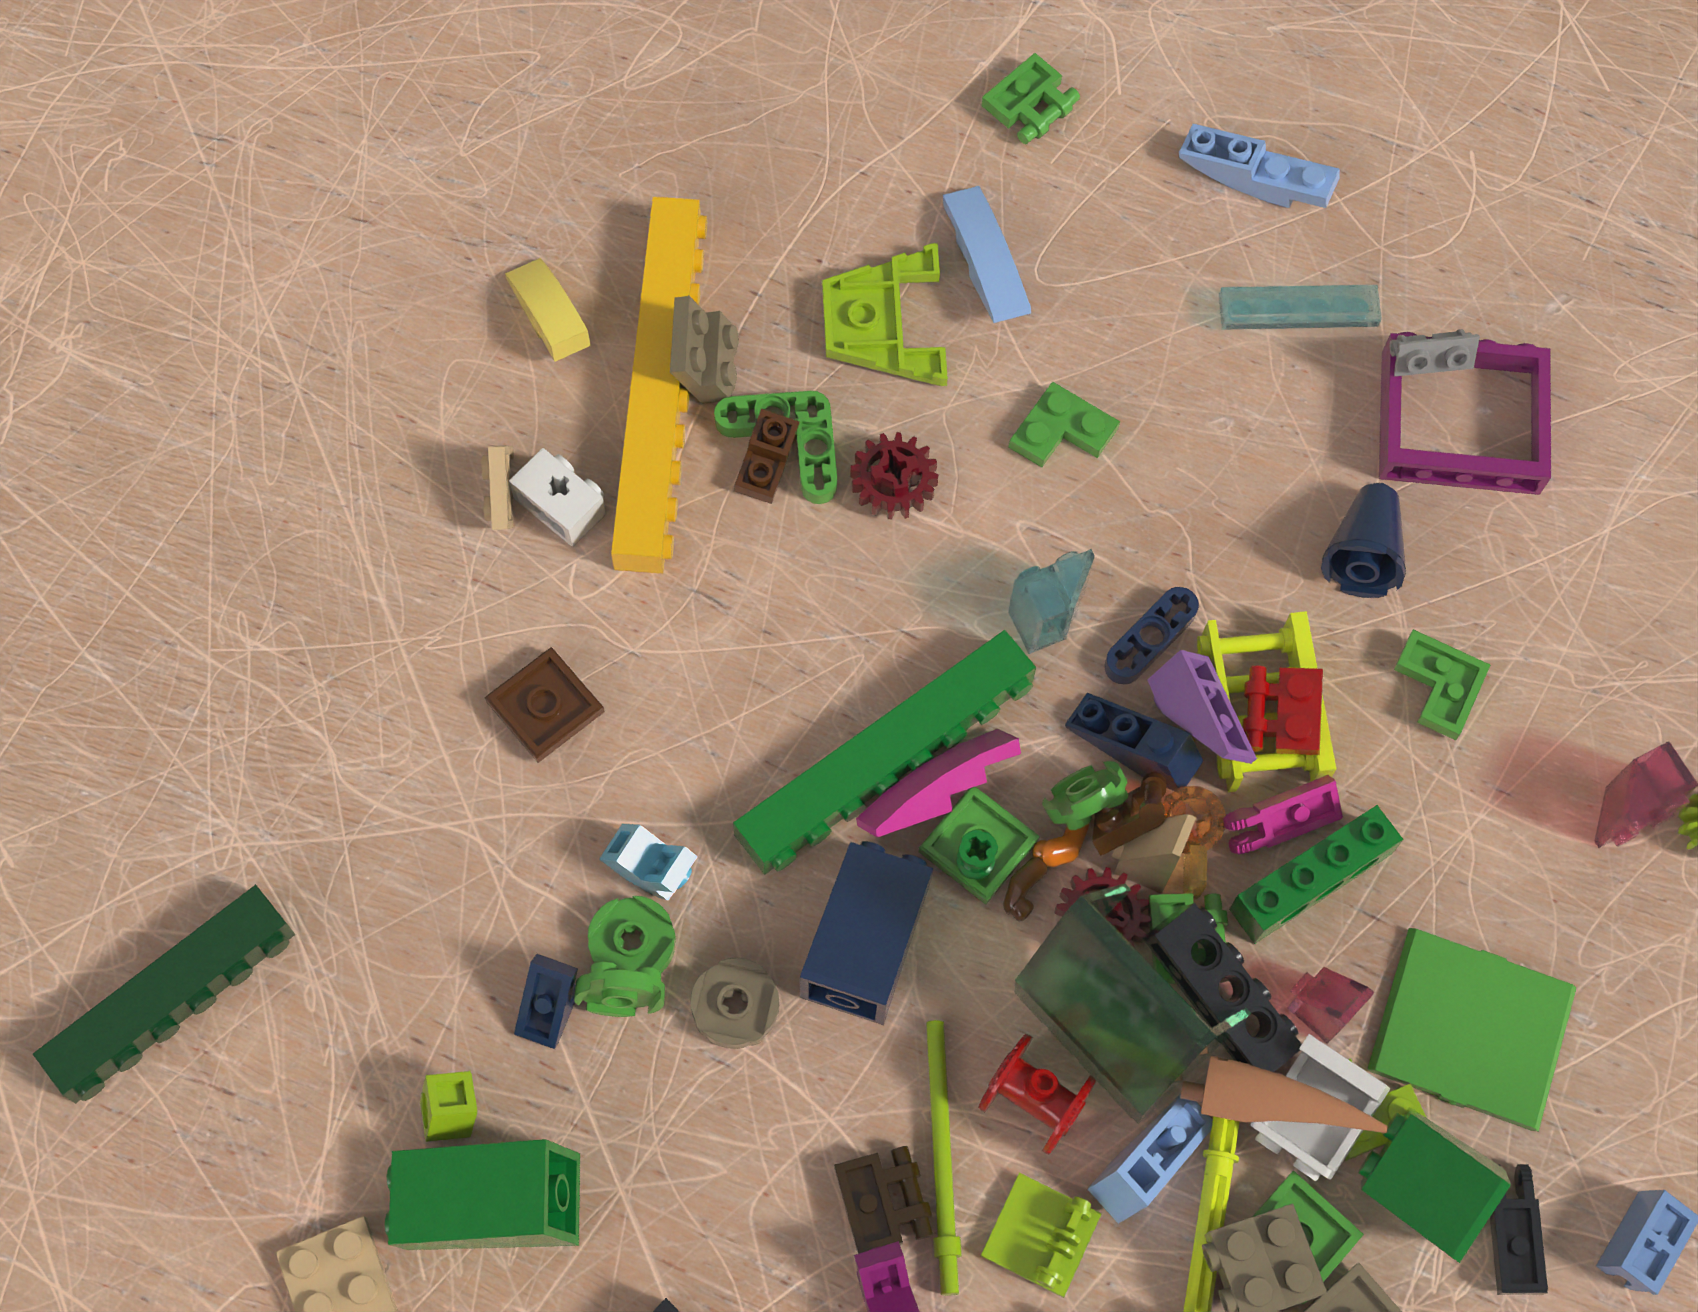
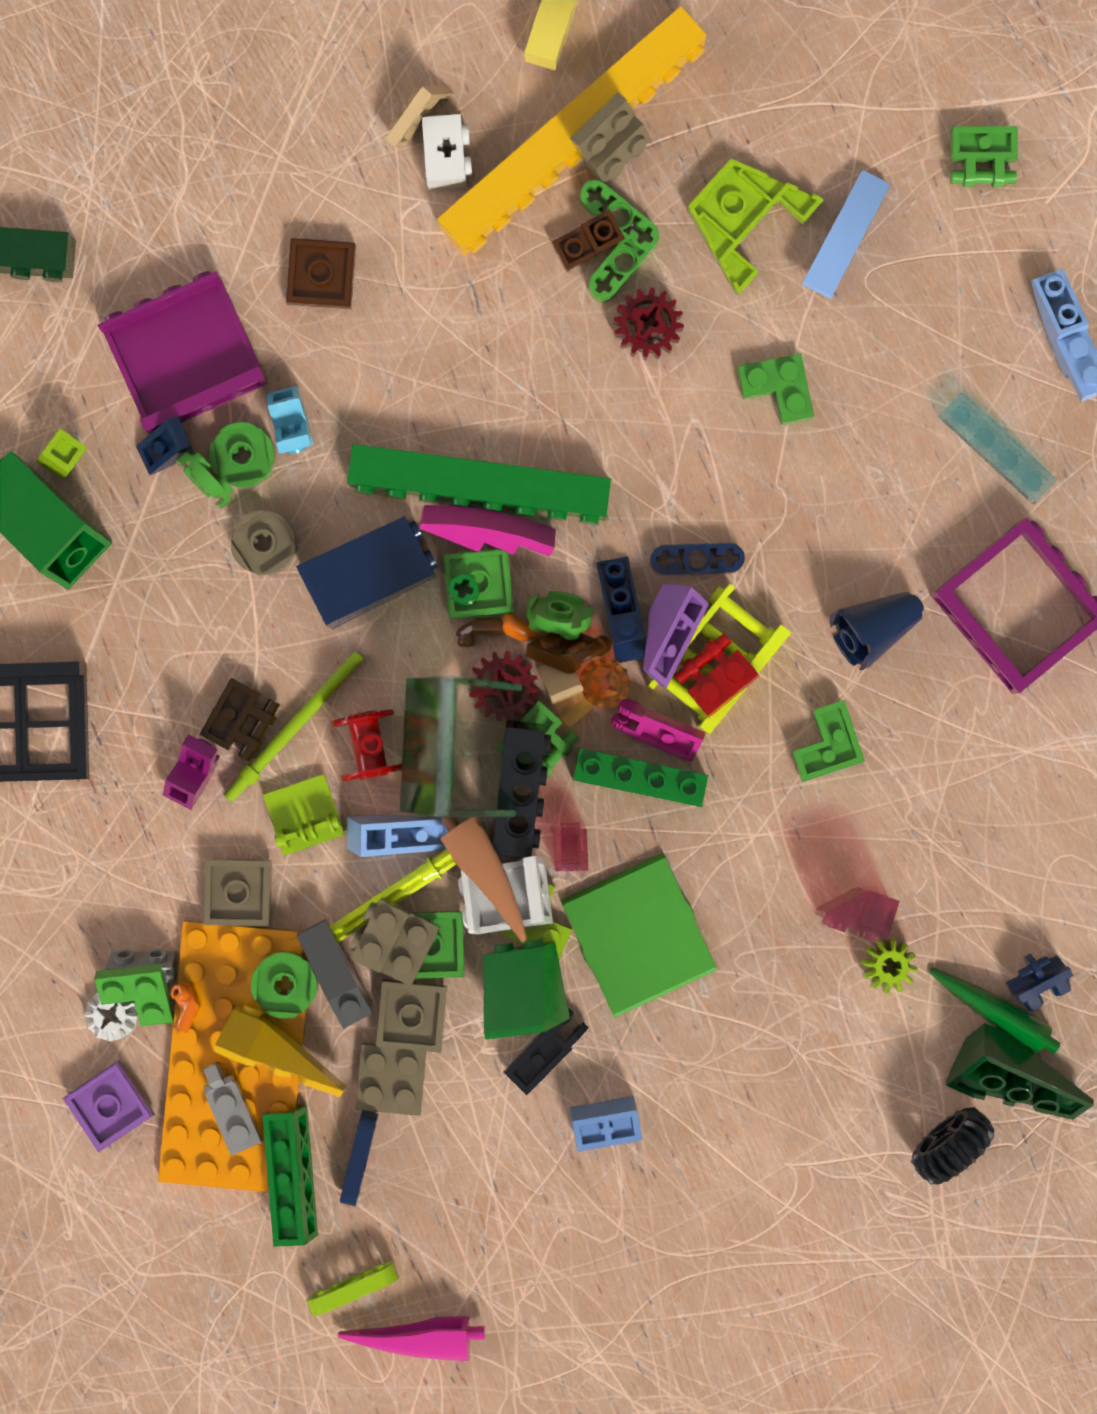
camera: 45 degrees right, 20 degrees up
(477, 899) = (183, 351): none -> magenta panel
(1049, 598) = (655, 487): clear light blue slope -> none
(1440, 354) = (1045, 564): light grey hinge -> none

